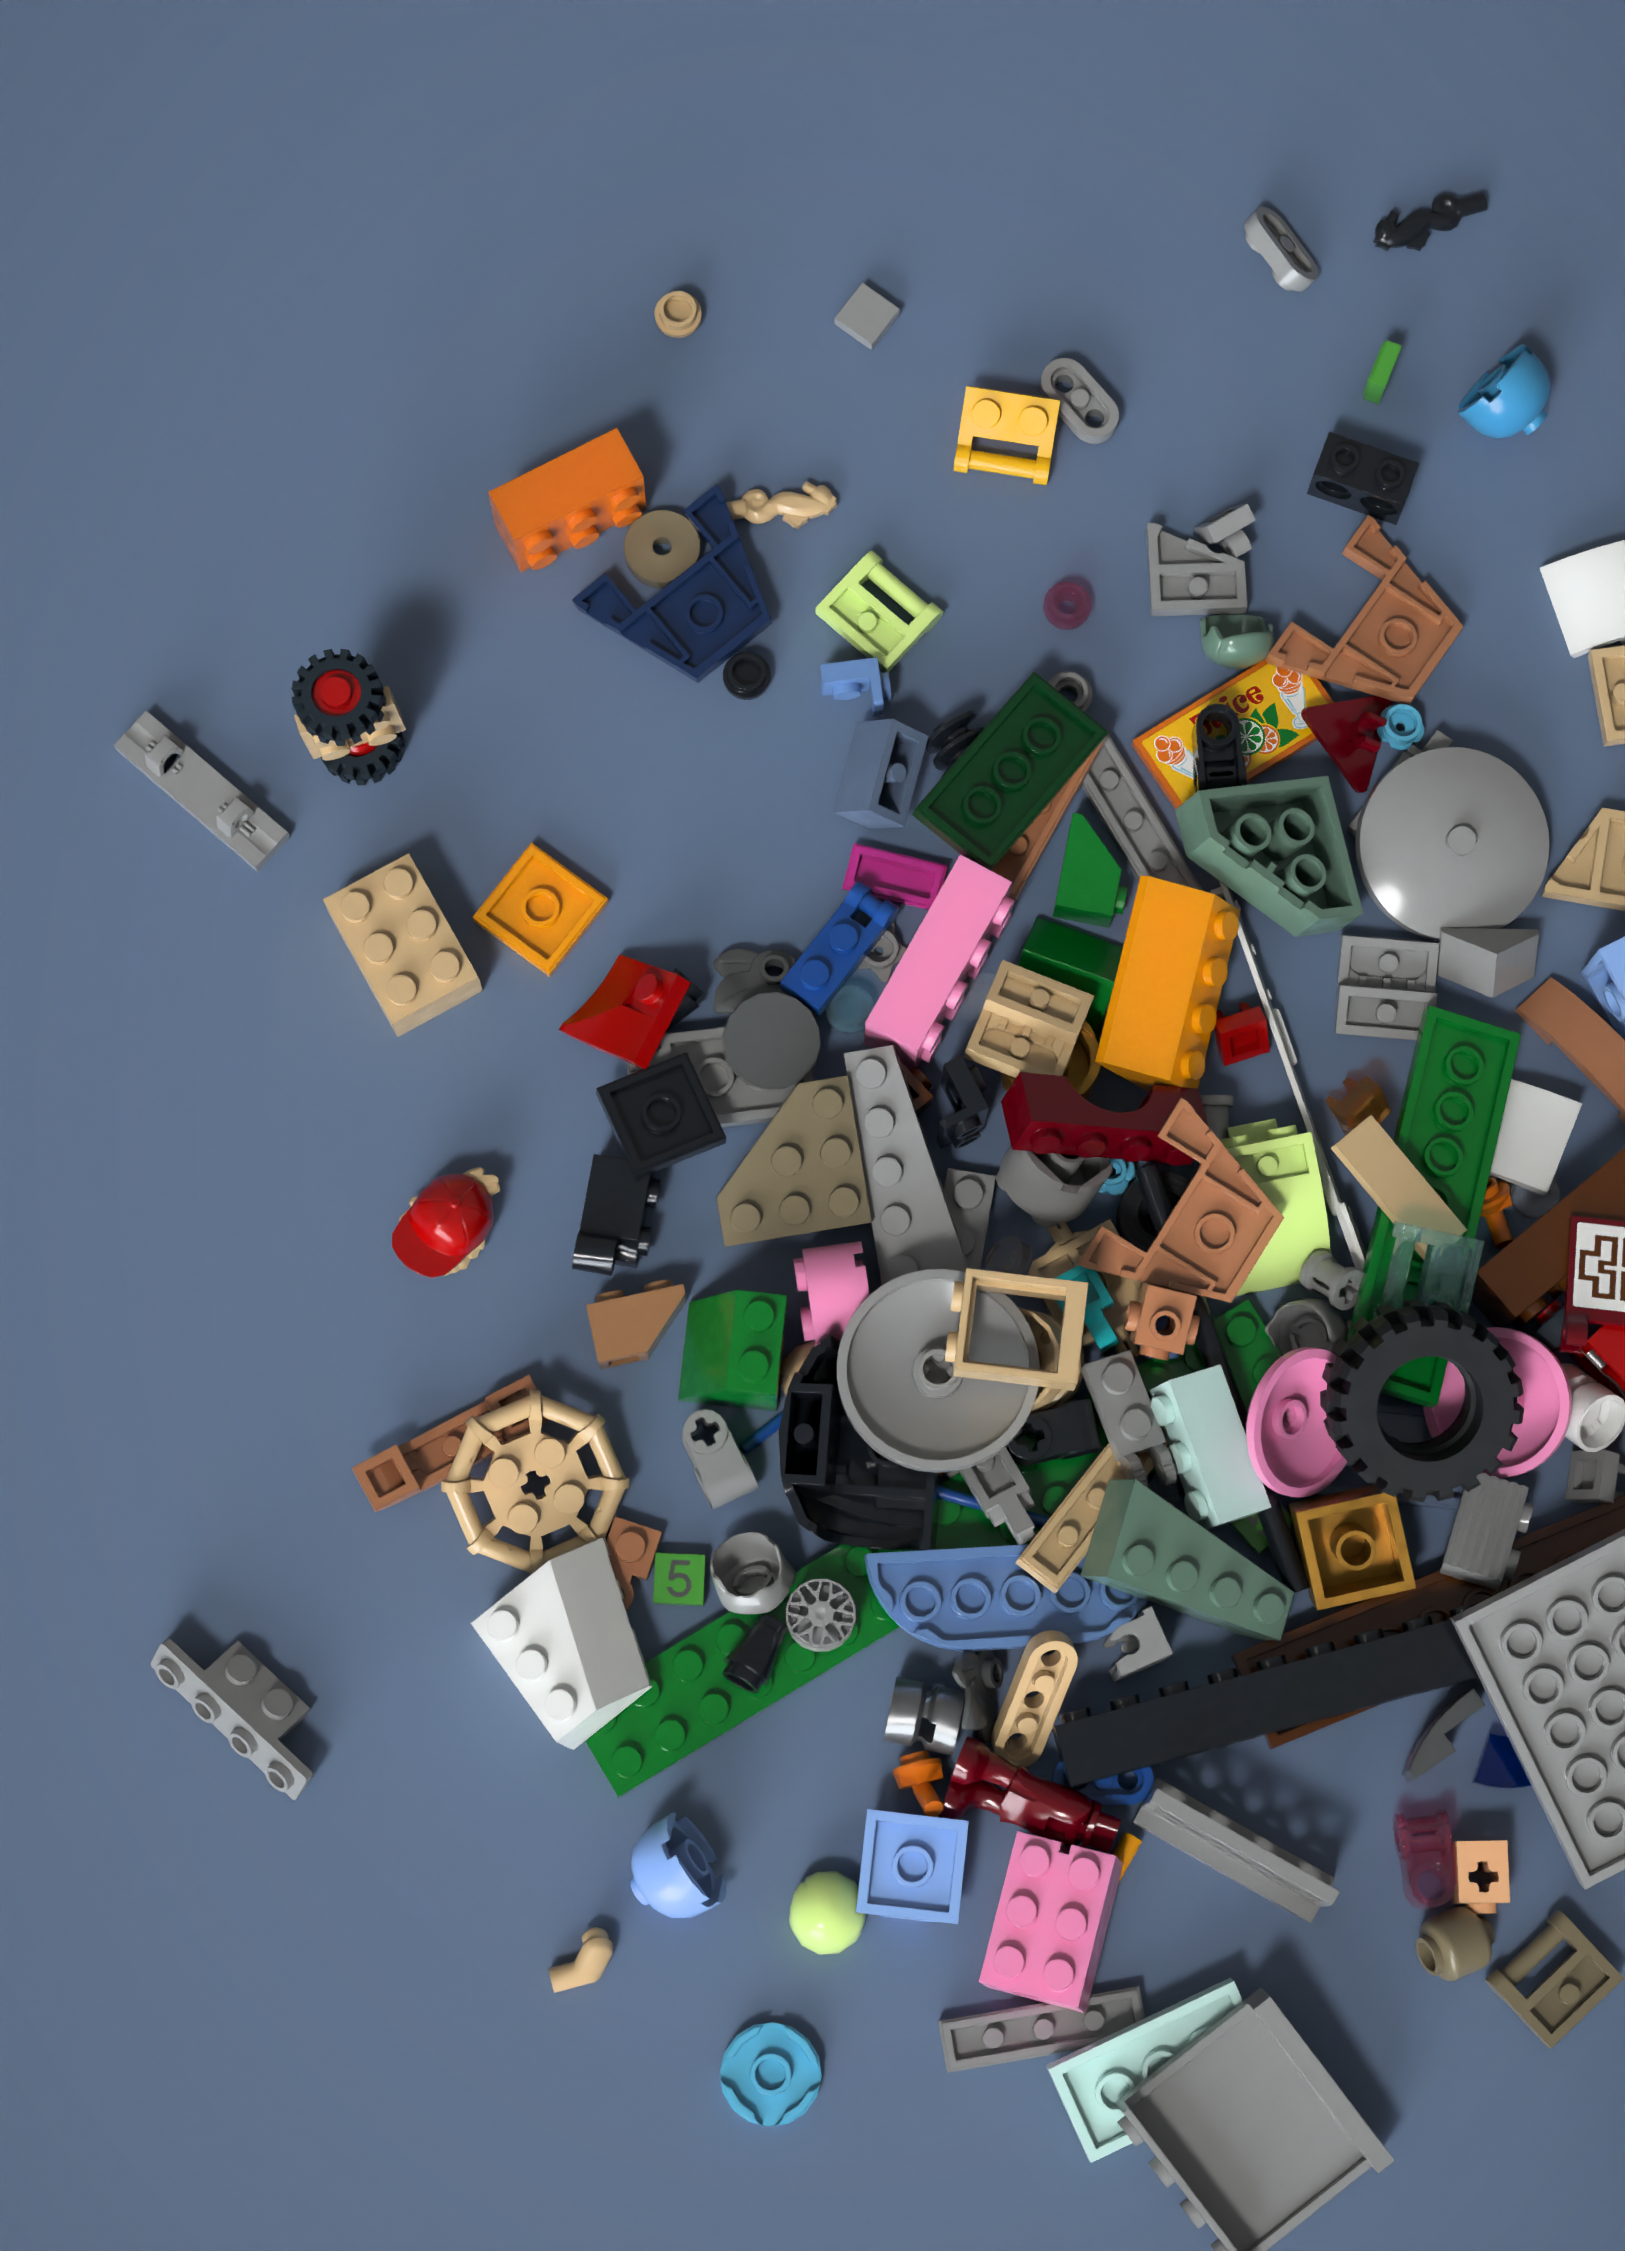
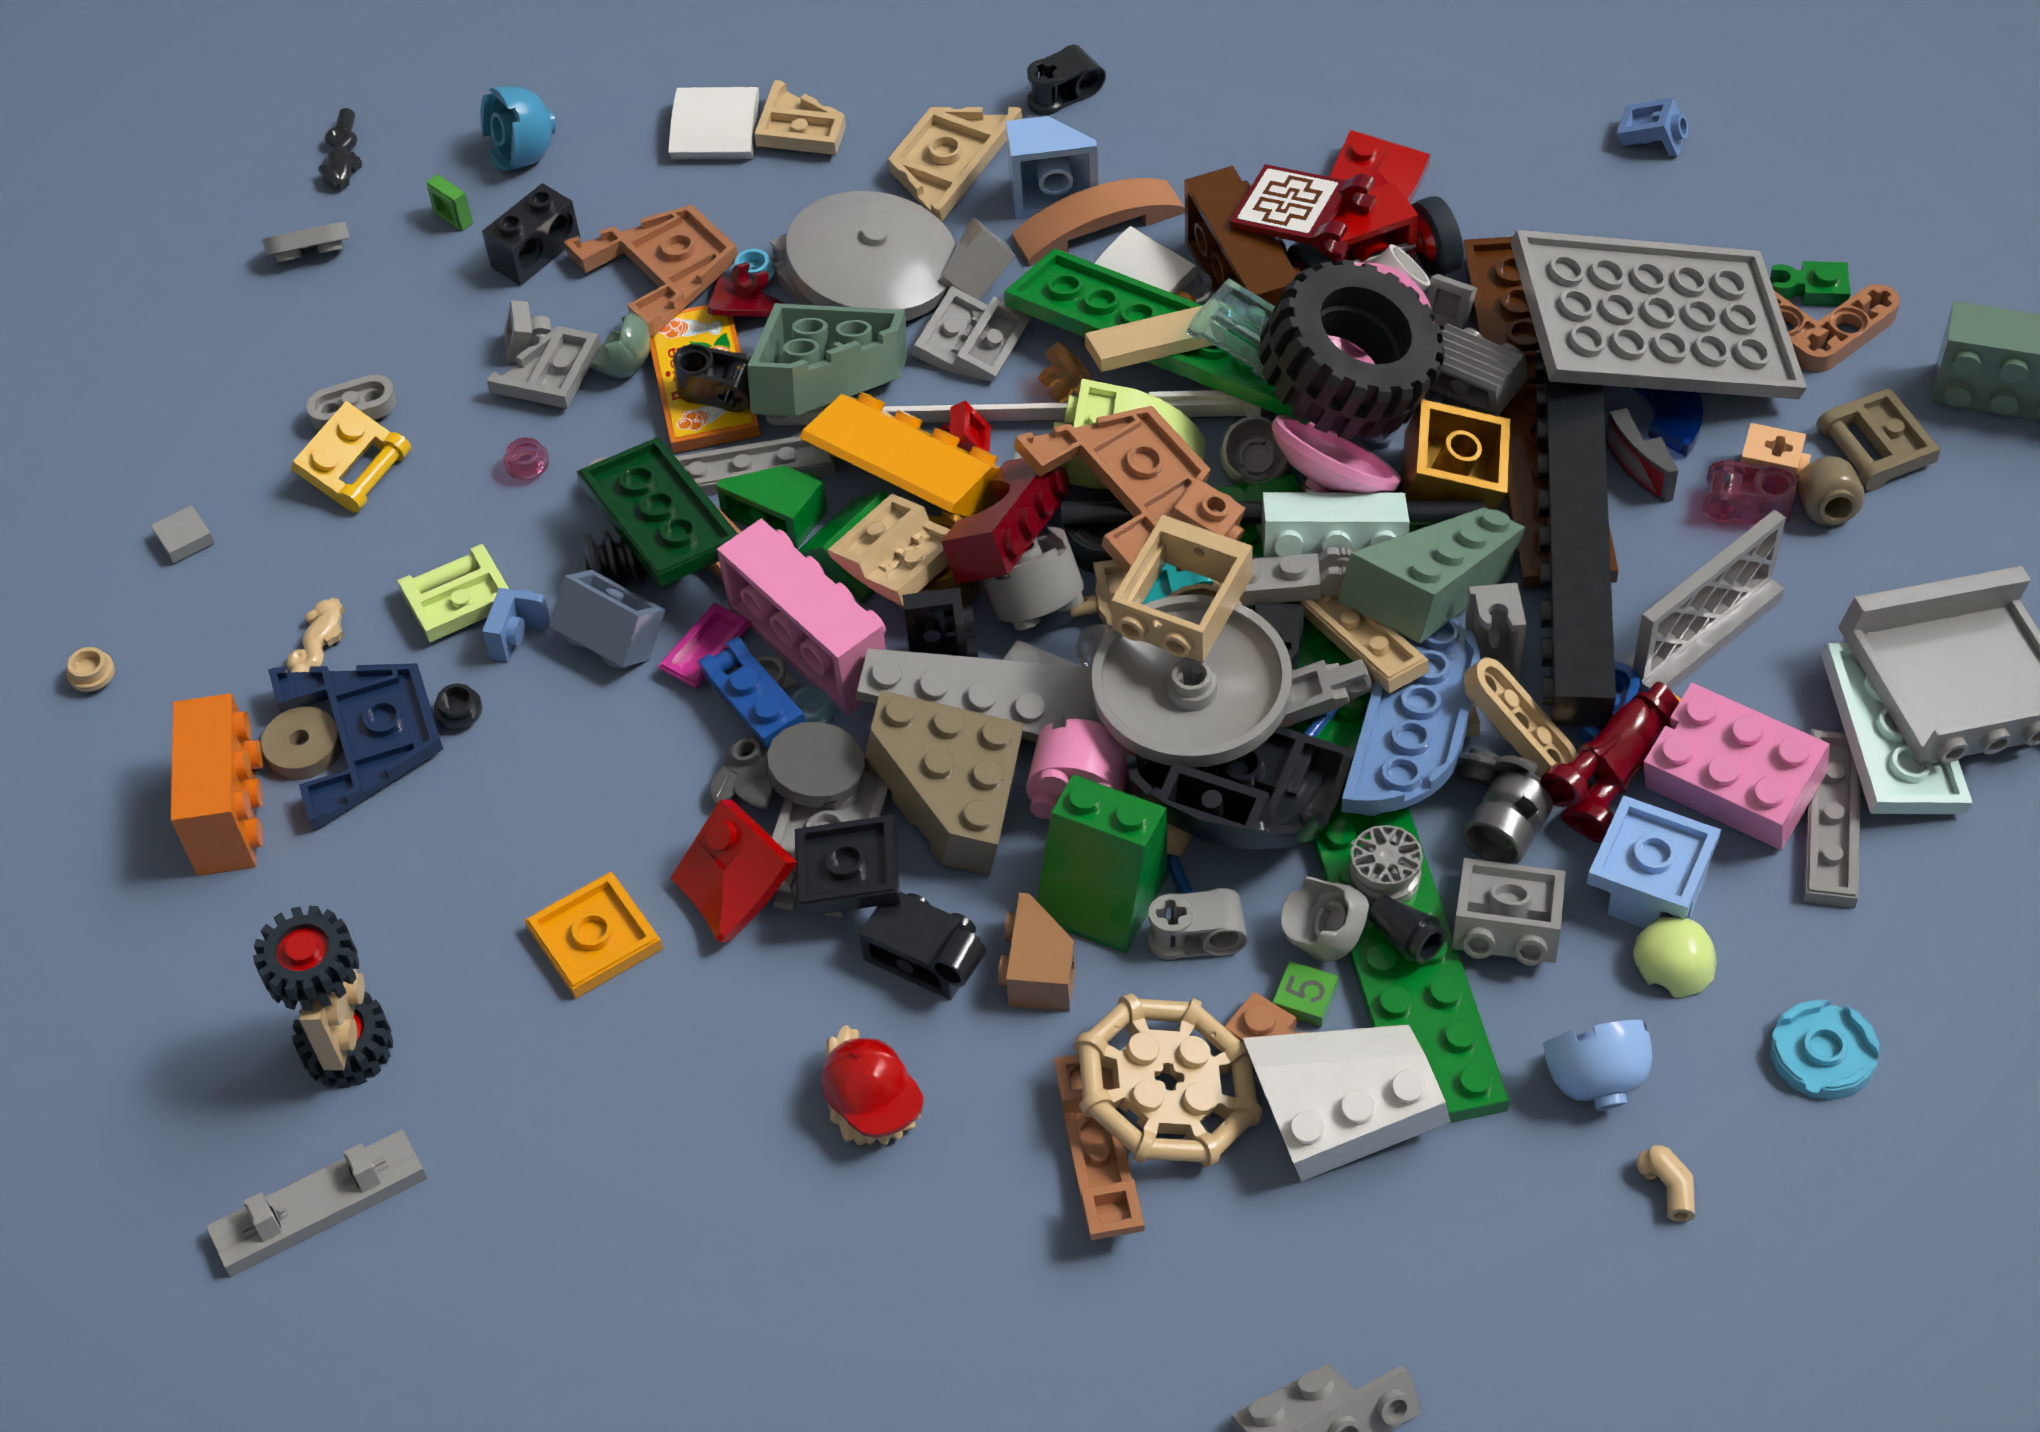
camera: 65 degrees left, 25 degrees down
(403, 945) = (570, 1051): tan brick -> none
(821, 1743) = (1509, 911): none -> light grey plate
(919, 1772) = (1561, 840): orange plate -> none
(1331, 1279) = (1214, 416): light grey bush -> none

